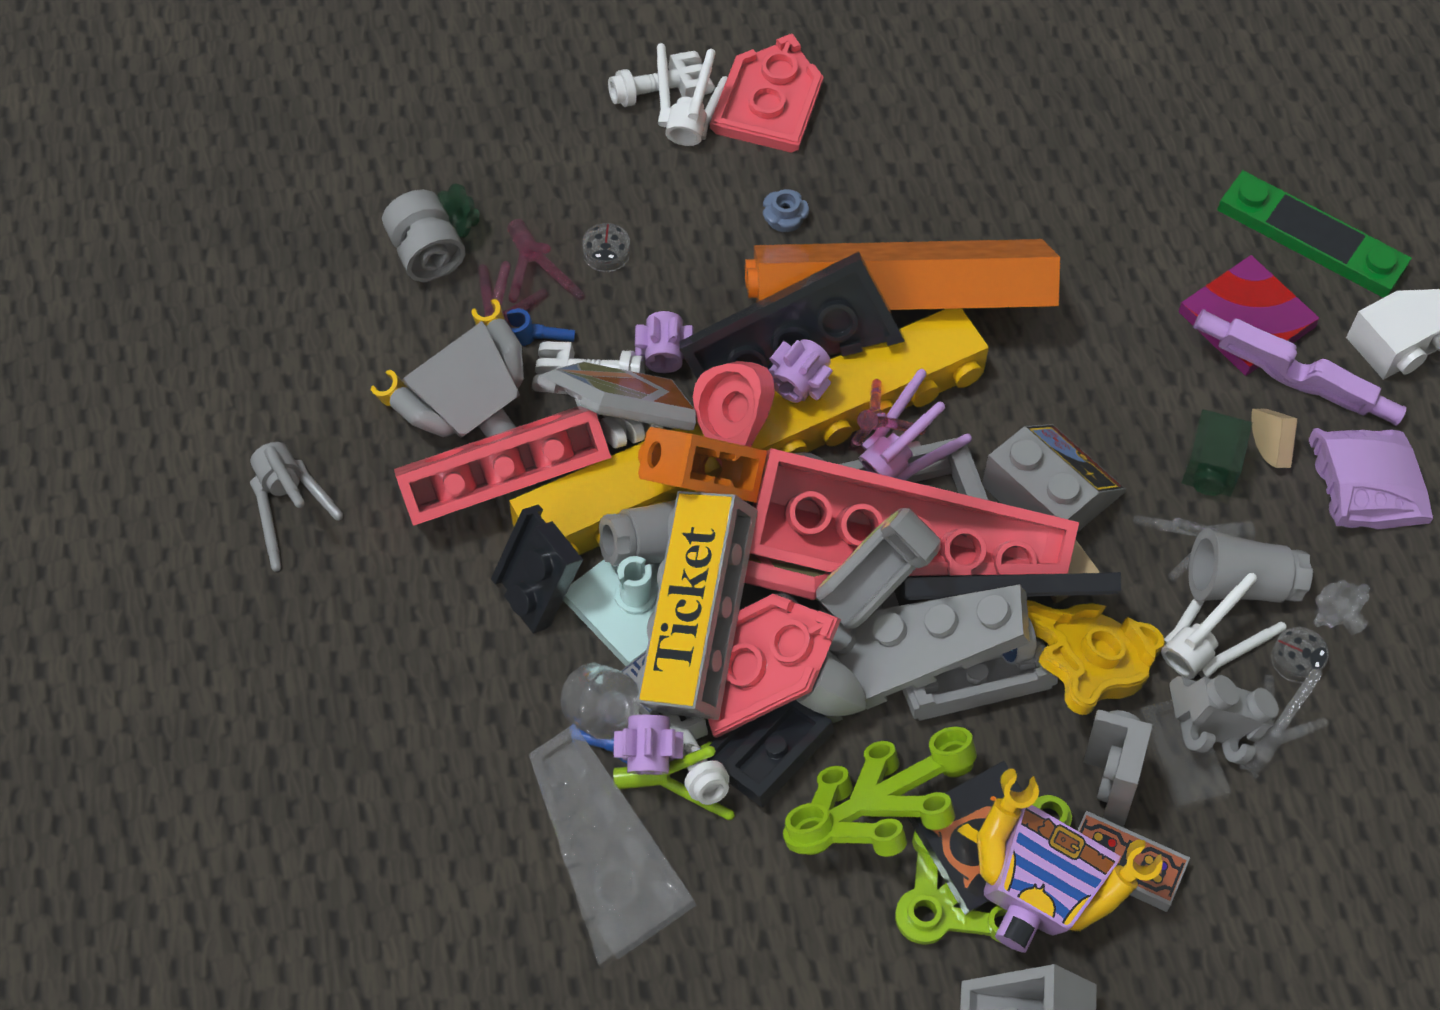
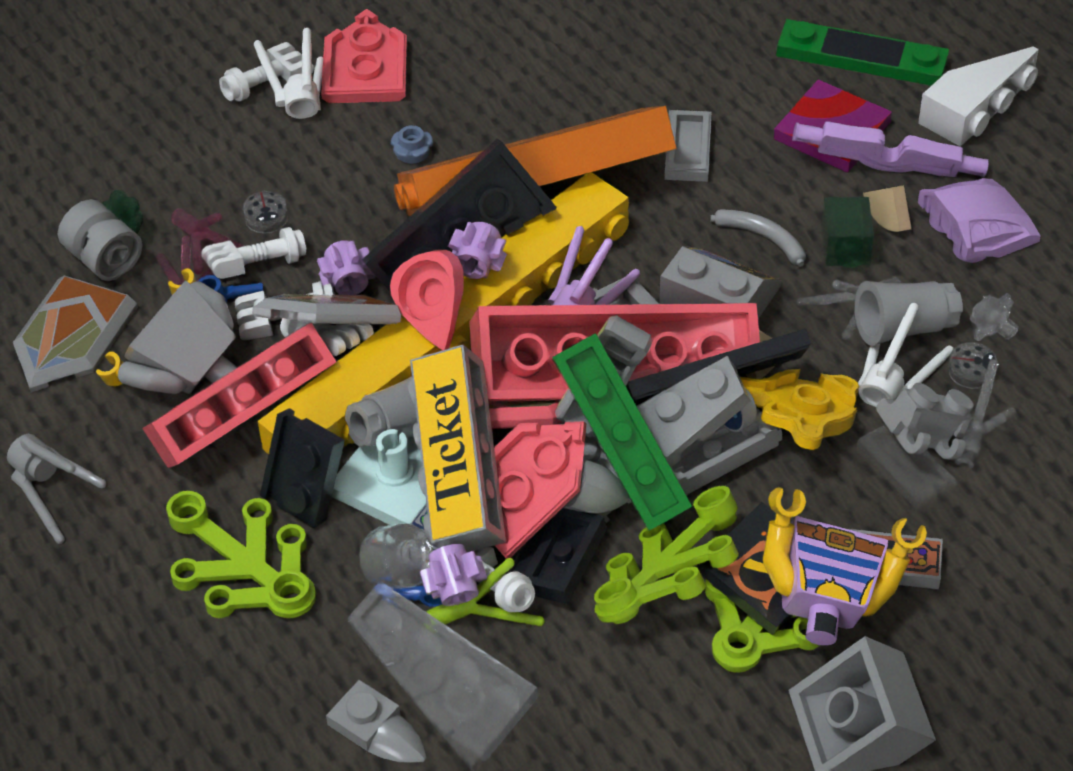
camera: 15 degrees left, 10 degrees down
(364, 330) = (71, 331): none -> tile
(450, 652) = (242, 561): none -> lime plant
(520, 883) = (376, 725): none -> light grey plate
(544, 295) = (229, 261): none -> white hinge
(681, 458) = (398, 334): orange torso -> none
(876, 418) = (555, 272): clear pink plant -> none
(876, 638) = (621, 432): none -> green plate
(1081, 294) = (692, 141): none -> light grey tile
(1119, 748) = (855, 473): light grey bracket -> none
(1130, 419) = (763, 227): none -> light grey piece

